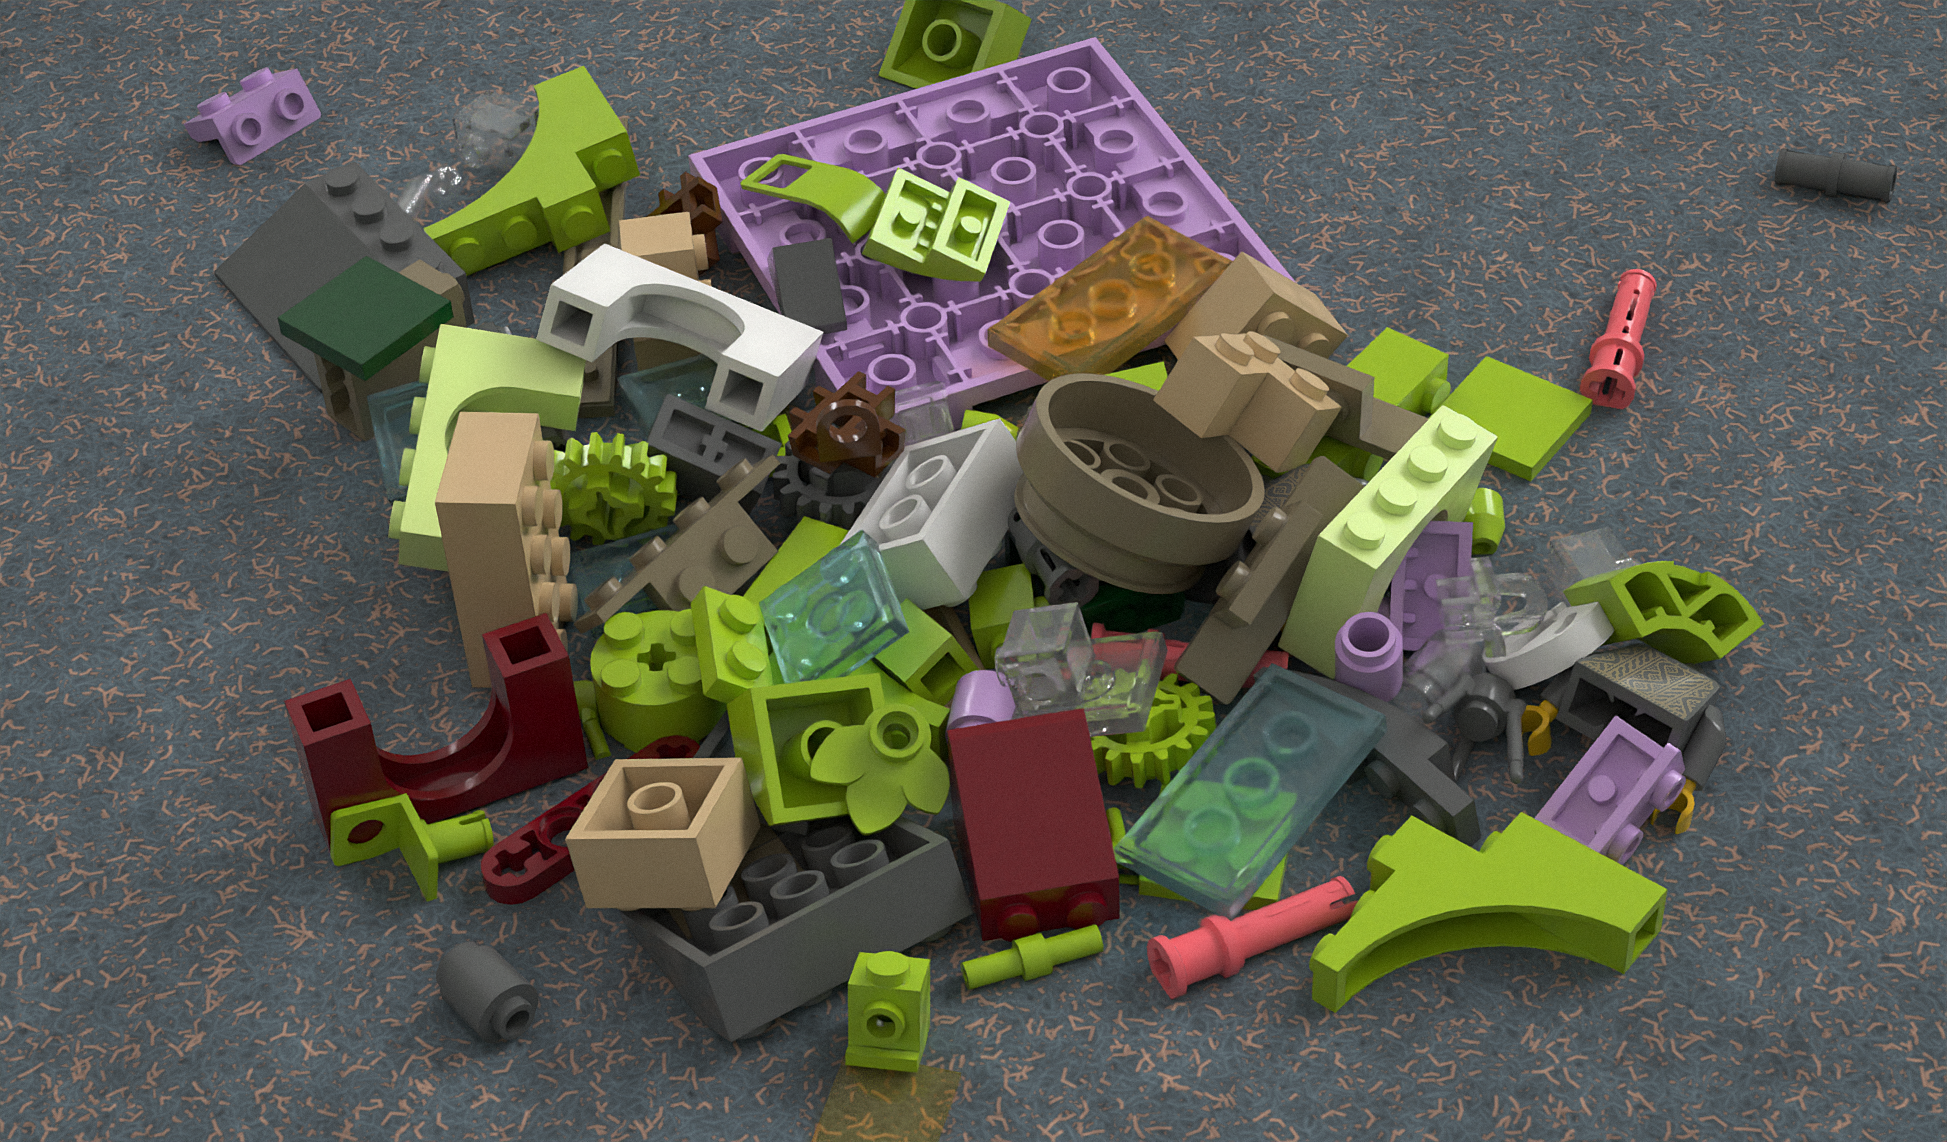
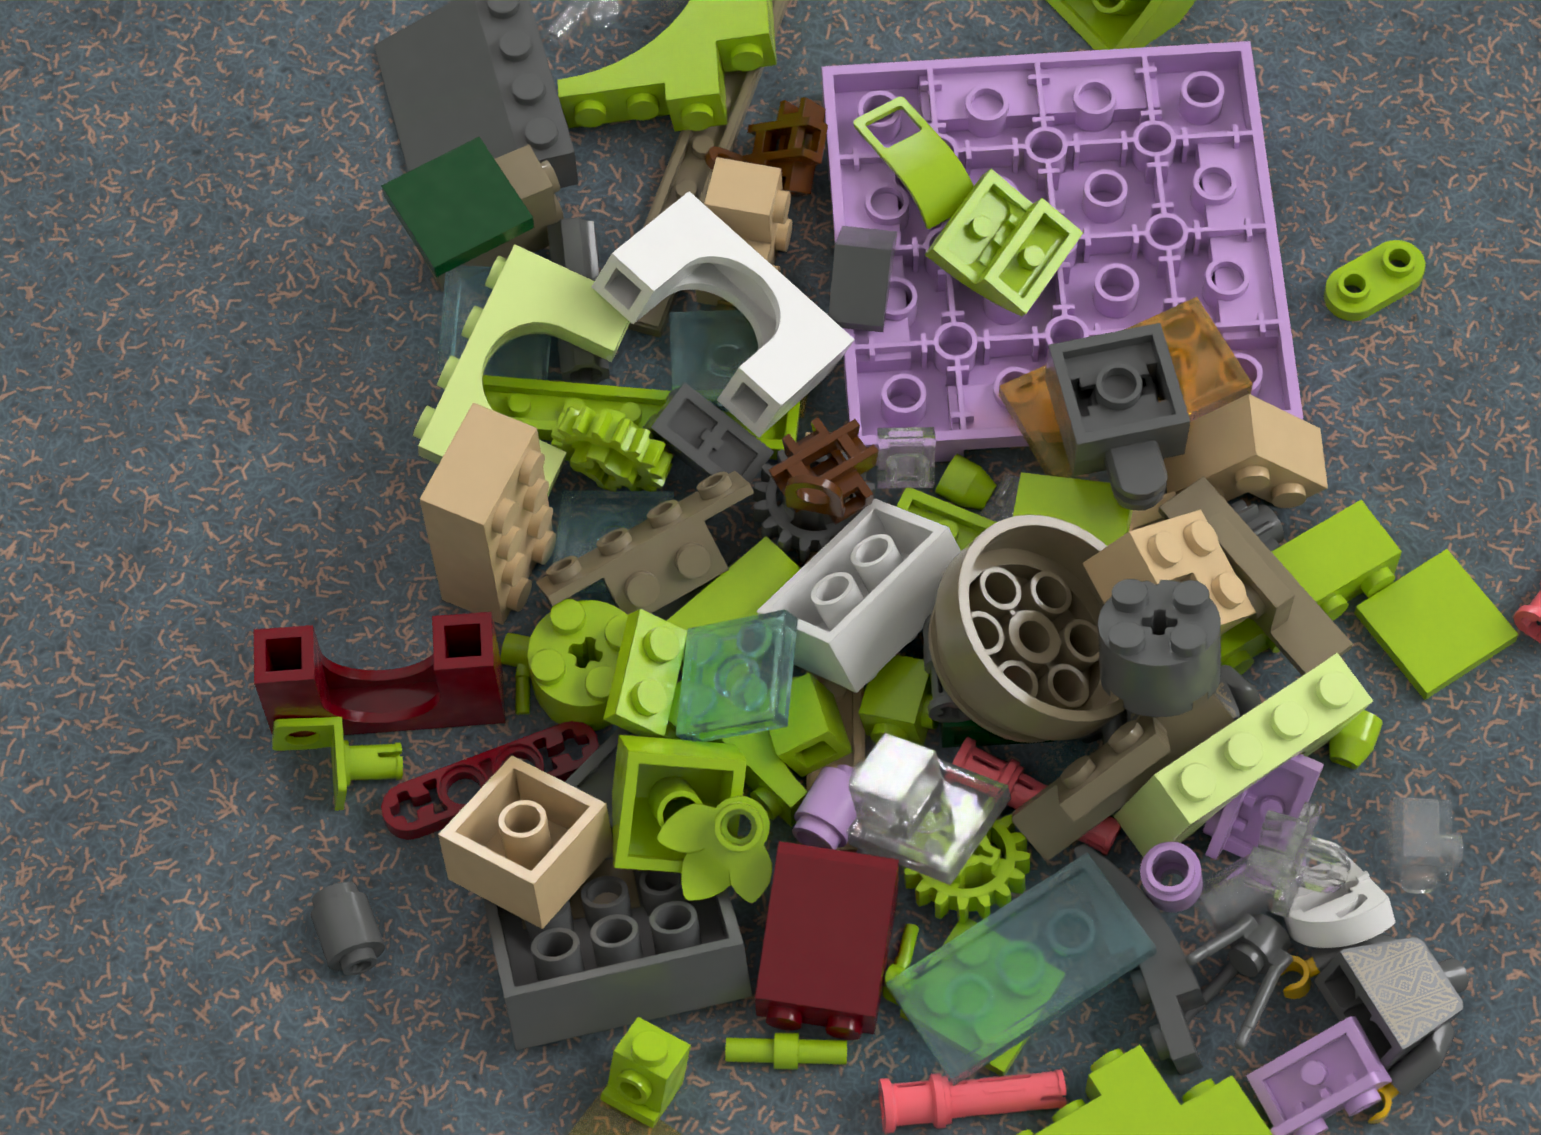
camera: 20 degrees right, 20 degrees up
(1118, 291) = (1119, 410): none -> dark grey brick
(1269, 426) = (1159, 645): none -> dark grey brick
(1302, 187) = (1377, 279): none -> lime plate
(1670, 609) = (1453, 908): lime brick -> none

